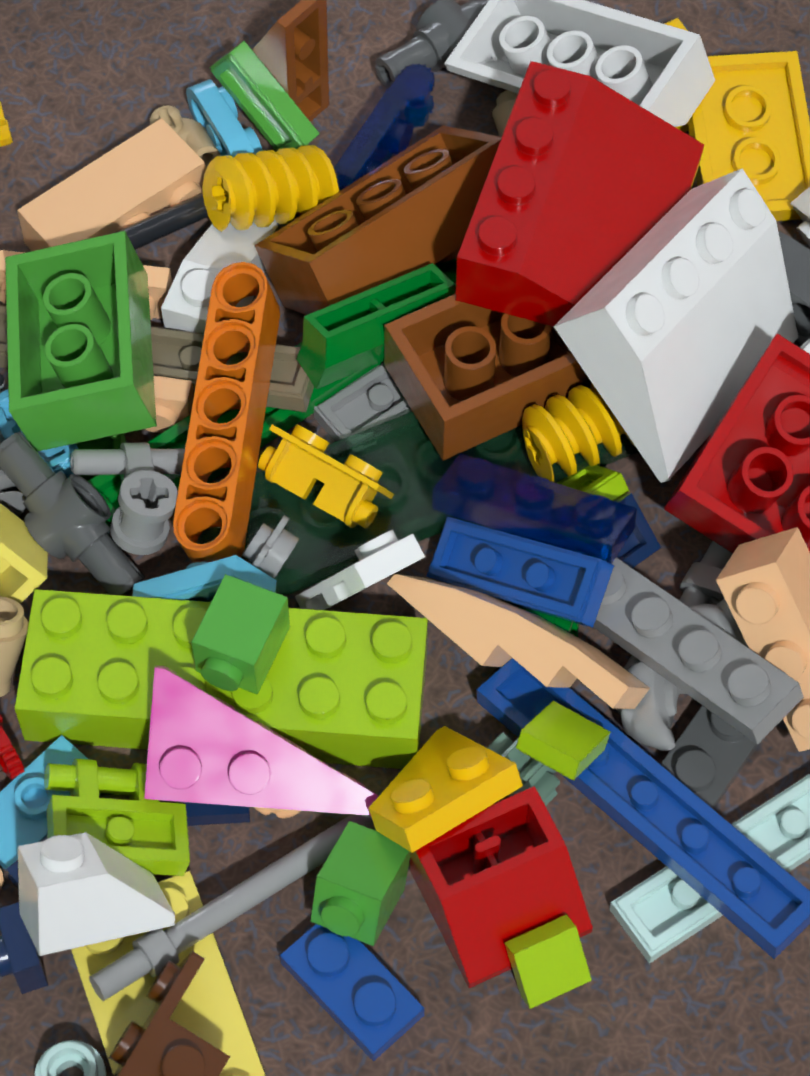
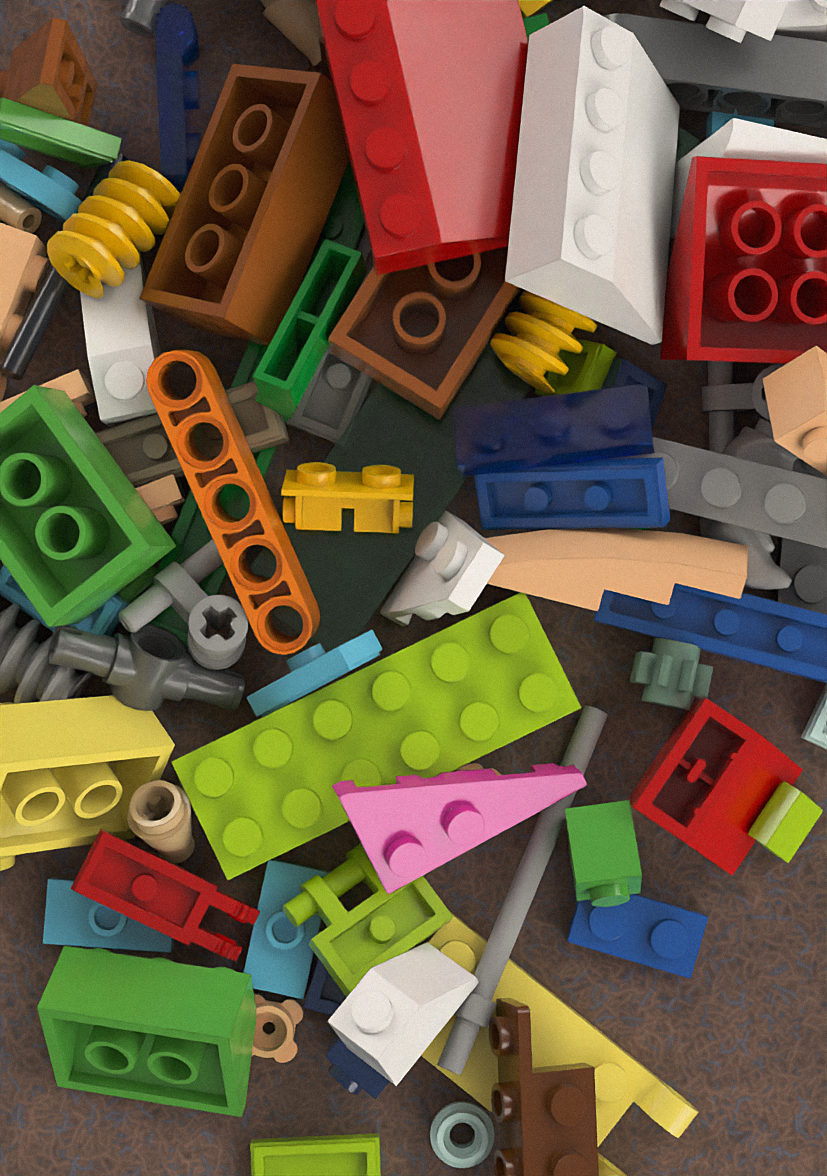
camera: 30 degrees left, 25 degrees up
(240, 635) = (389, 722): bright green brick -> none
(271, 547) = (348, 602): light grey plate -> none
(441, 789) = (627, 740): yellow wing -> none
(563, 740) = (703, 637): lime tile -> none

